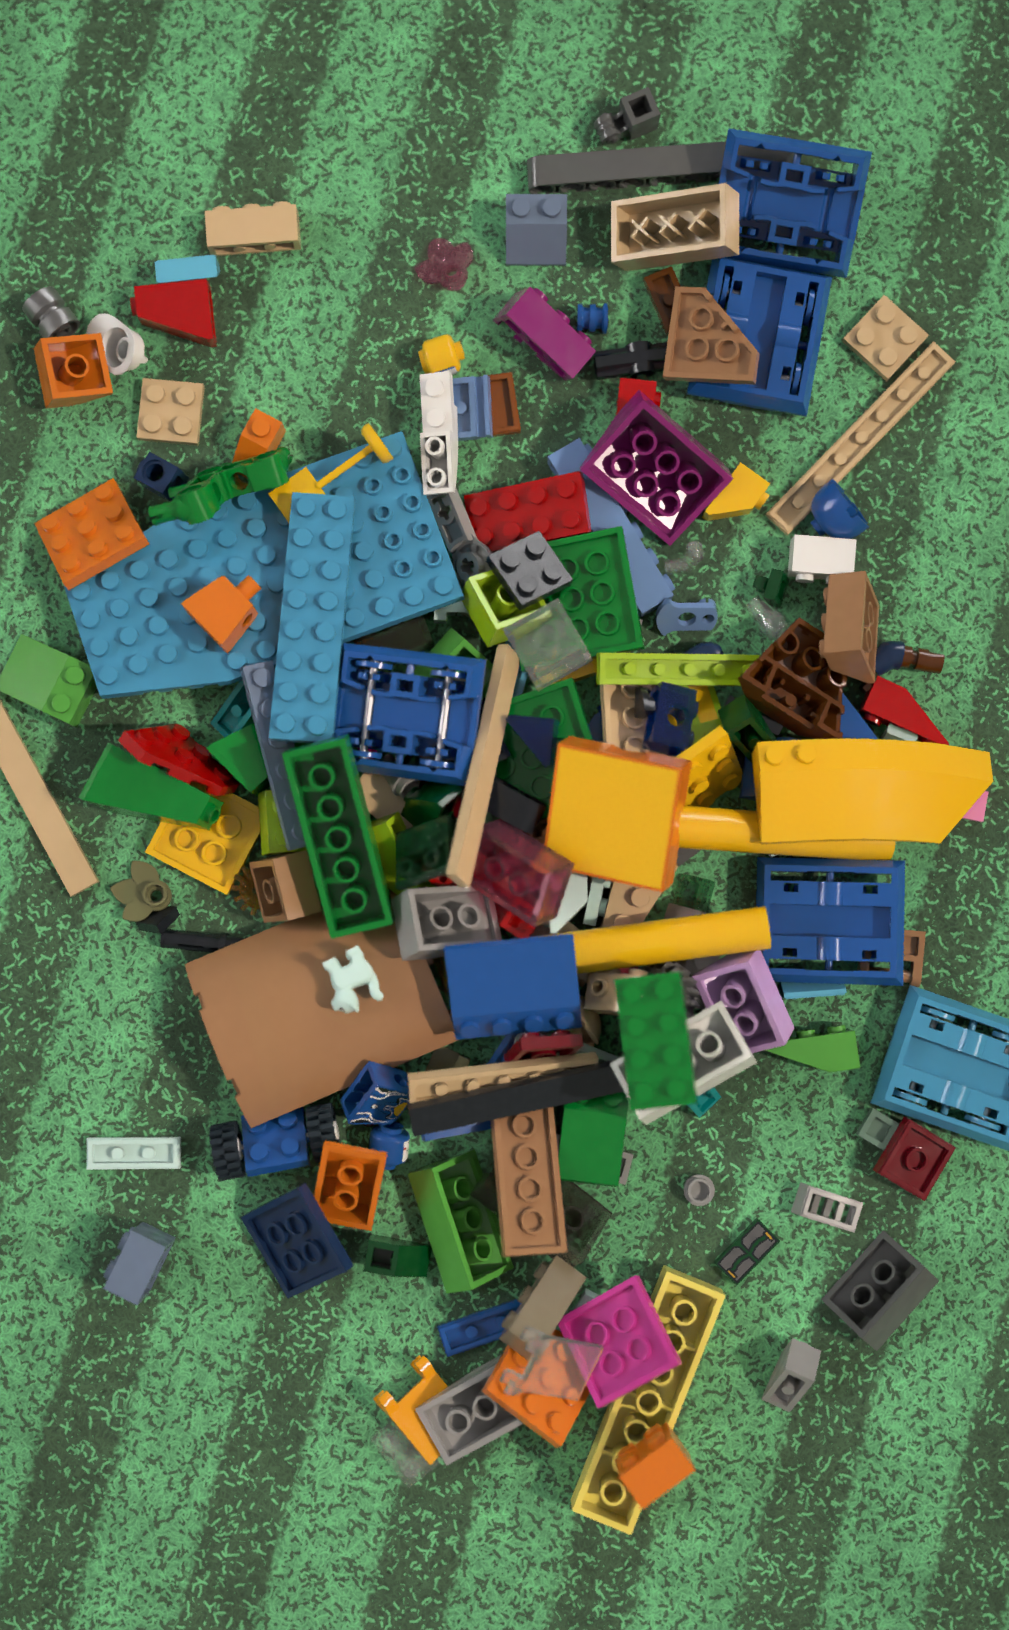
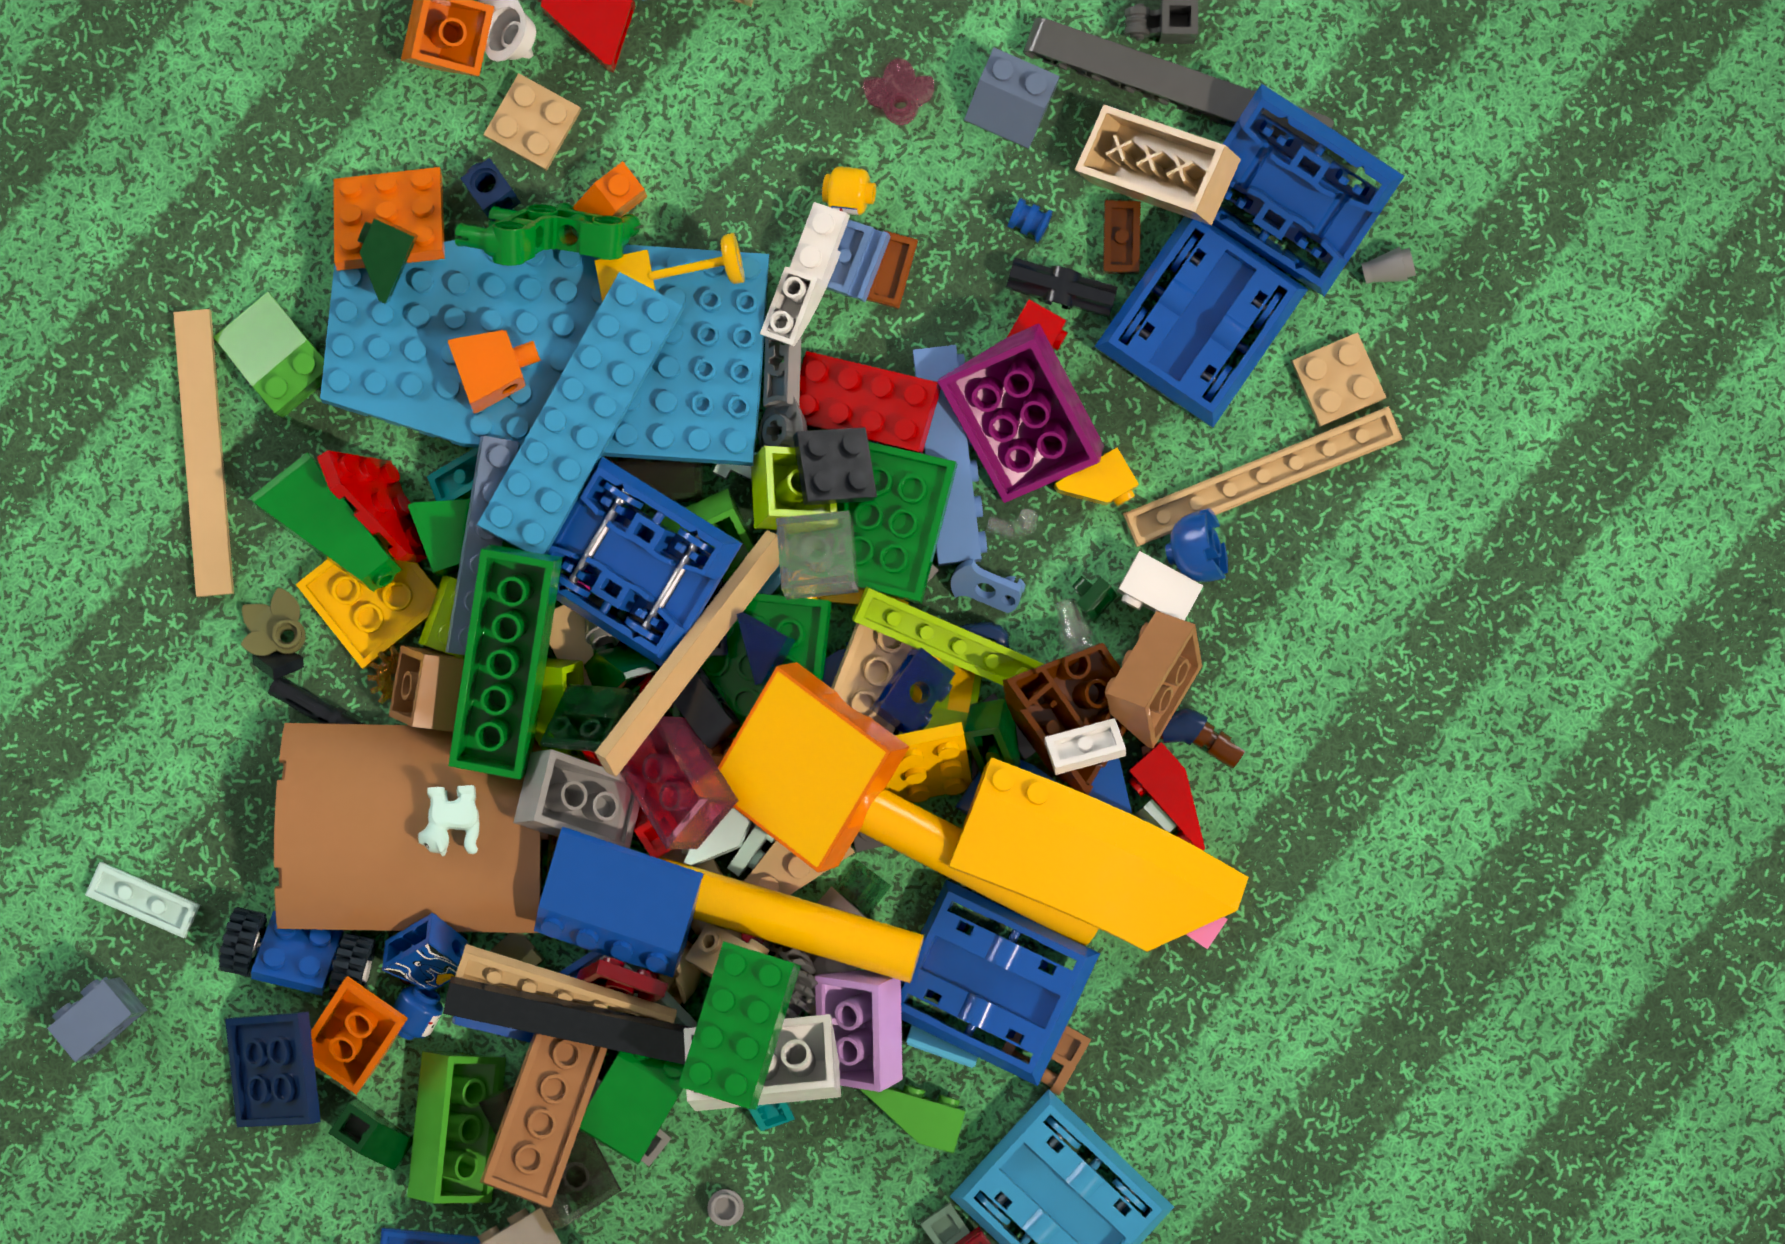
camera: 25 degrees right, 0 degrees up
(101, 558) = (385, 254): none -> dark green slope
(546, 332) = (972, 214): magenta wedge -> none
(643, 703) = (893, 662): black tile -> none
(706, 342) = (1136, 303): medium nougat plate -> none
(824, 702) = (1085, 746): none -> white plate
(887, 232) = (1390, 267): none -> light grey cone

